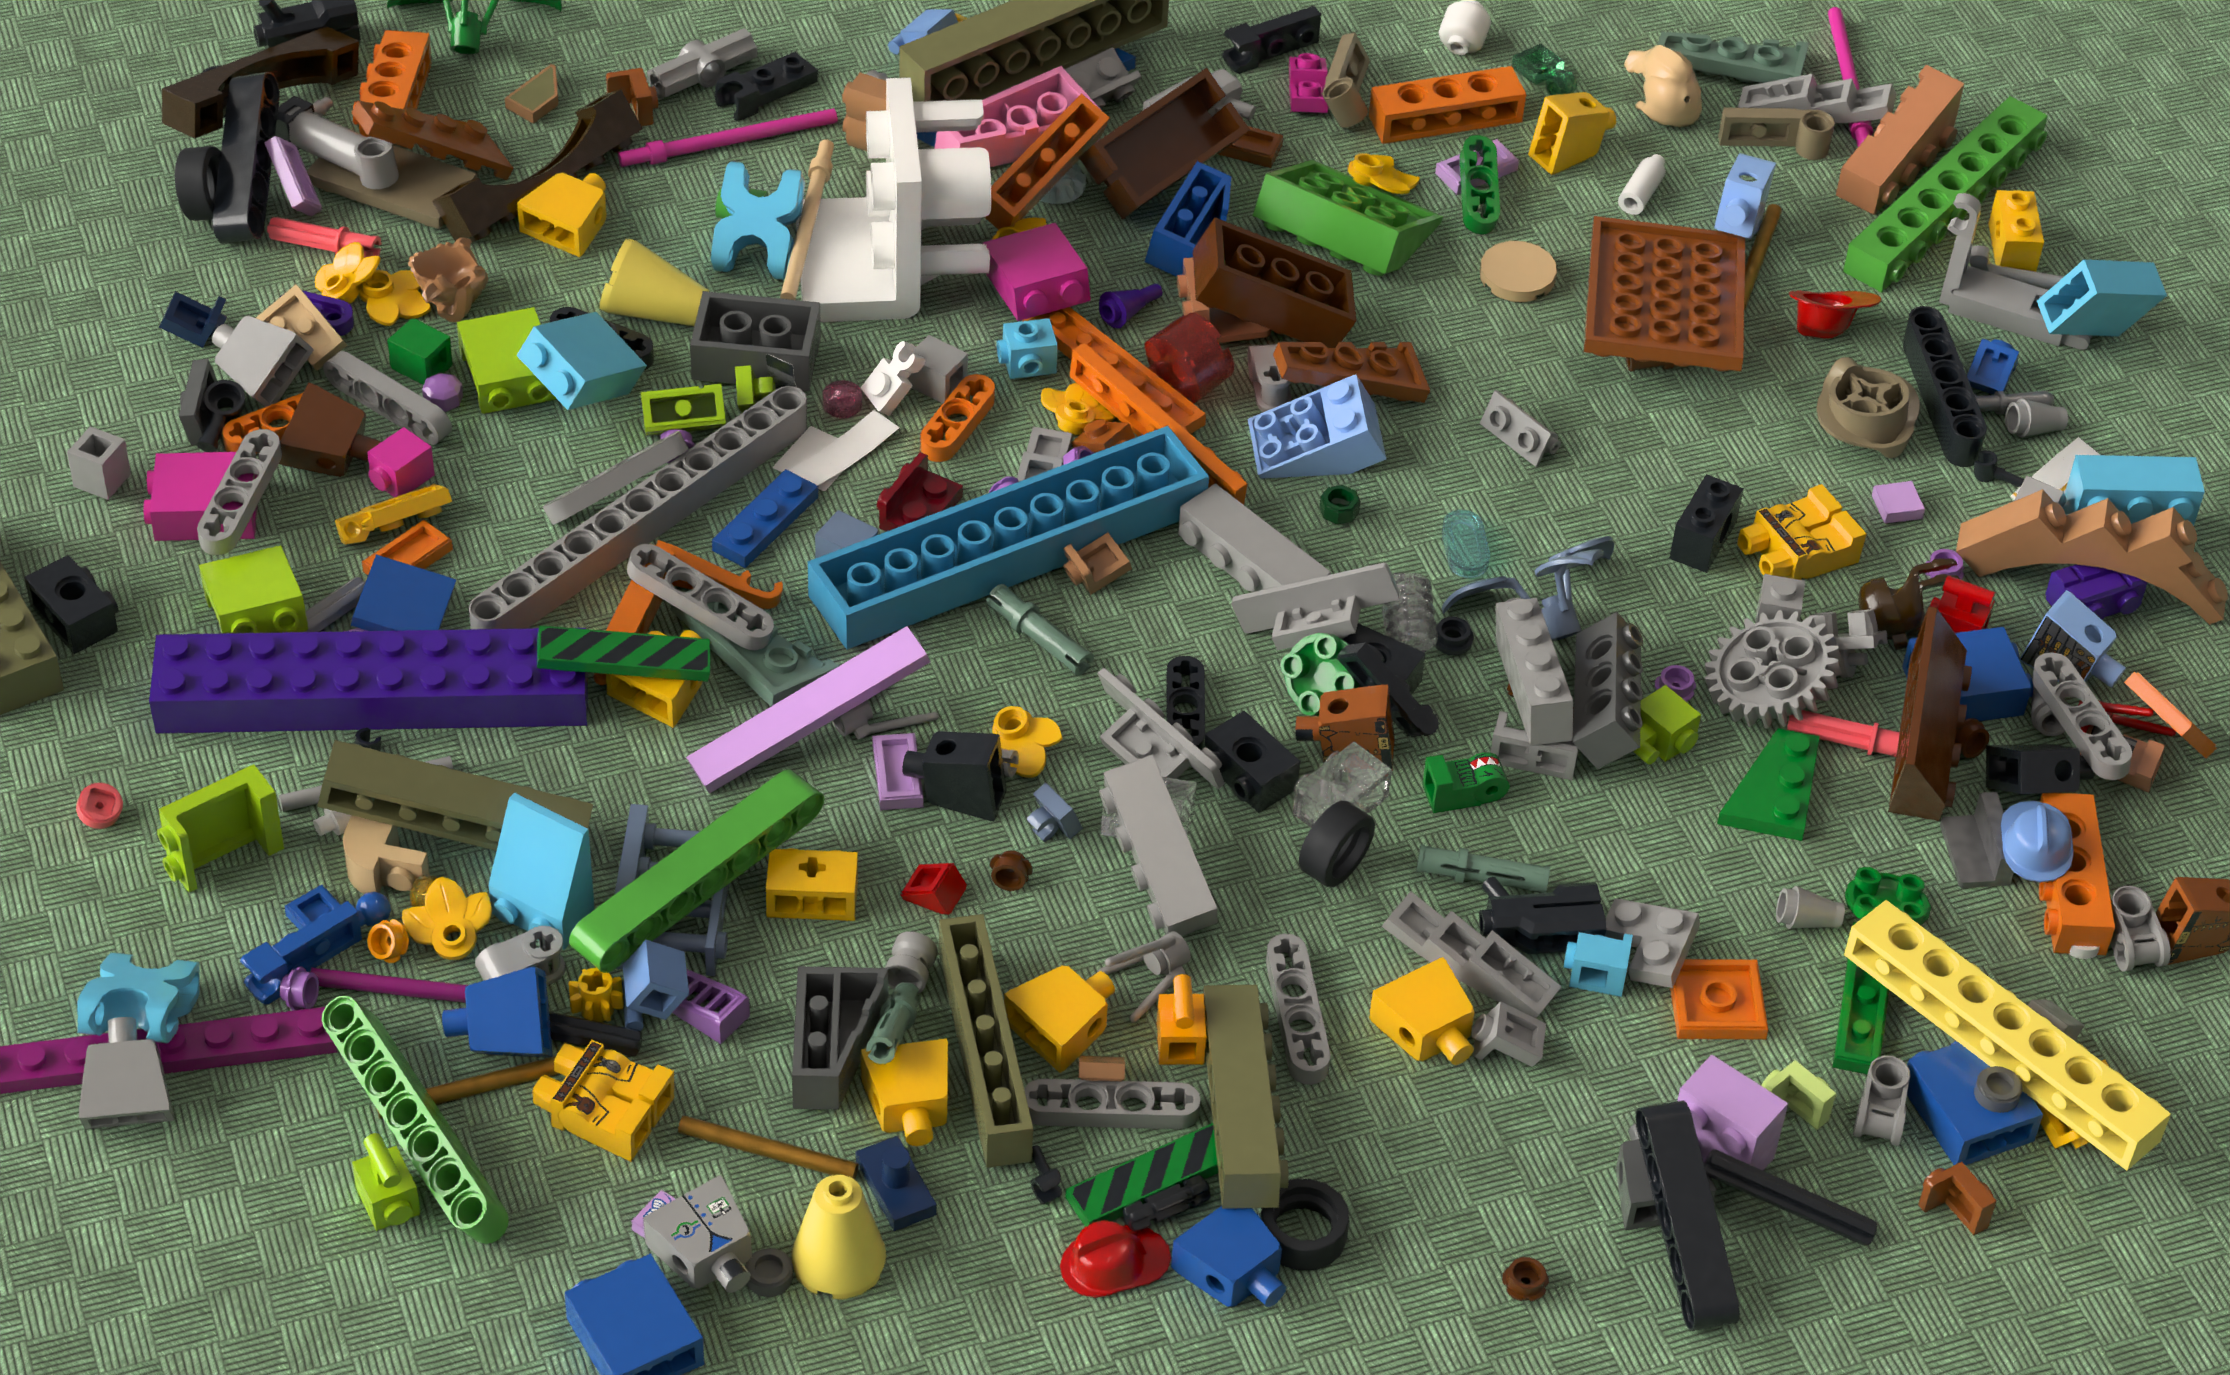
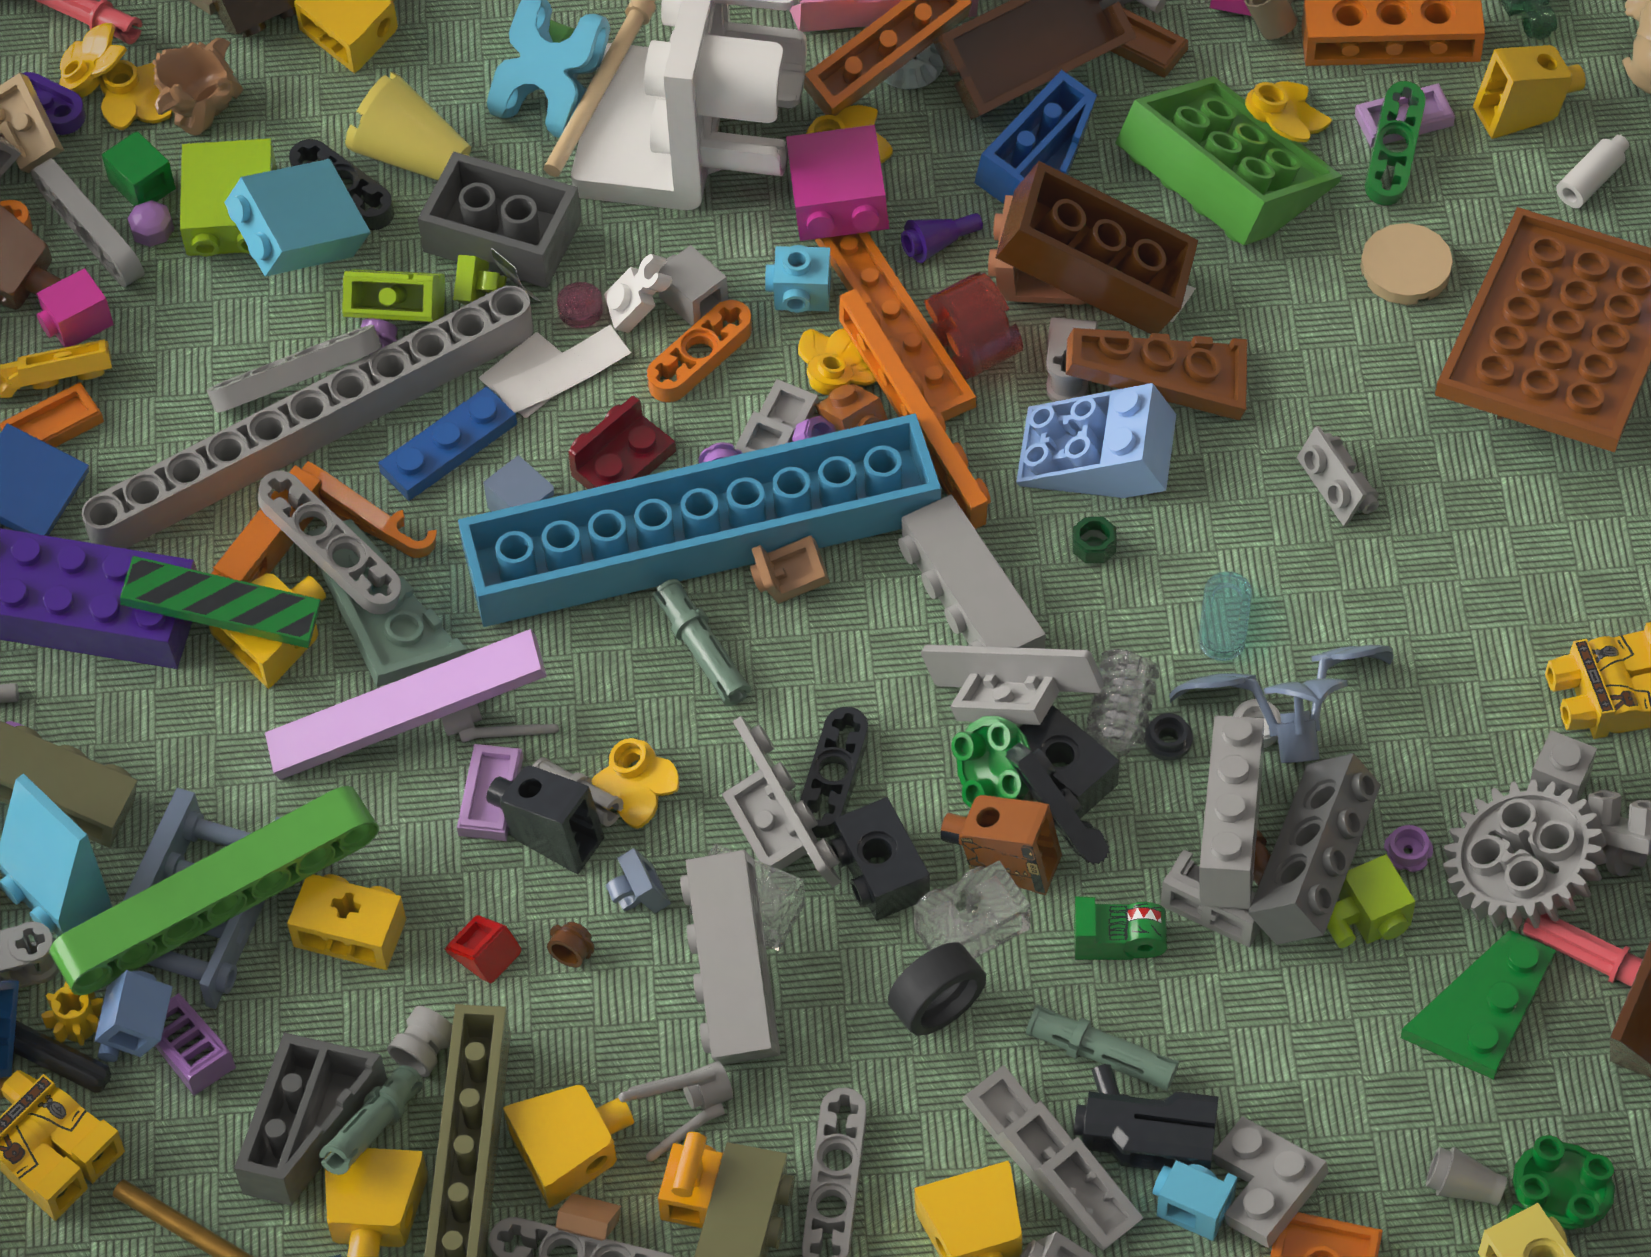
camera: 20 degrees right, 10 degrees up
(1706, 523) = (1512, 643): black brick -> none

